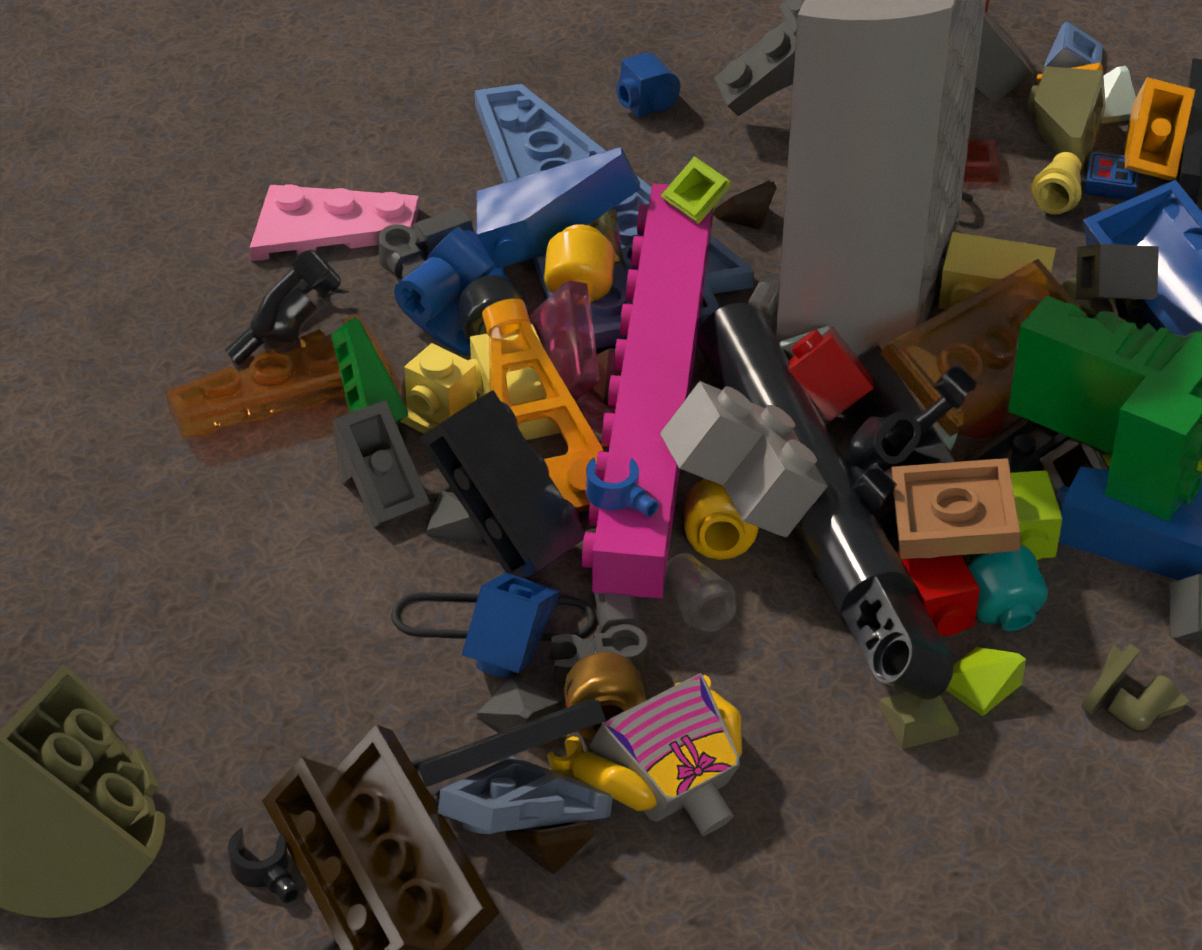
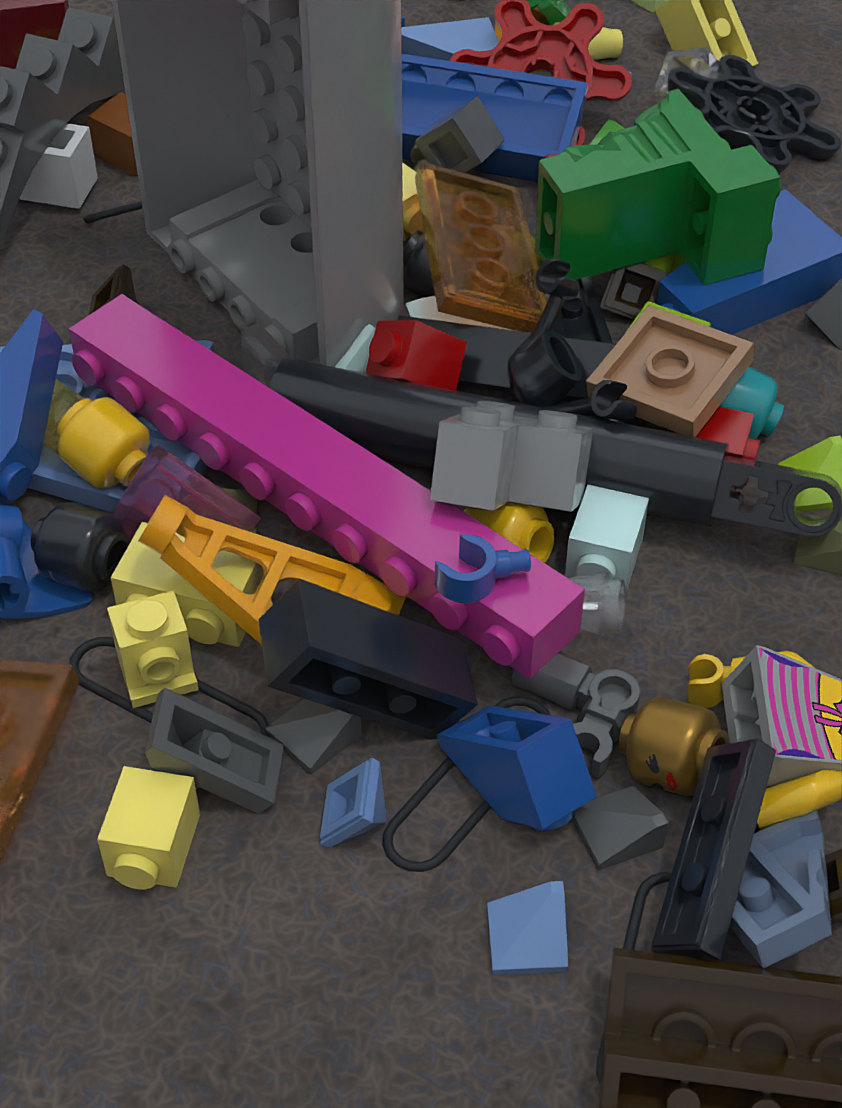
camera: 55 degrees left, 5 degrees up
(303, 473) = (149, 828): none -> light yellow brick
(363, 372) = (87, 697): green slope -> none
(392, 701) = (529, 931): none -> medium blue slope
(412, 566) = (353, 804): none -> medium blue slope
(696, 190) = (127, 301): lime slope -> none
(774, 573) = (606, 534): none -> light aqua brick

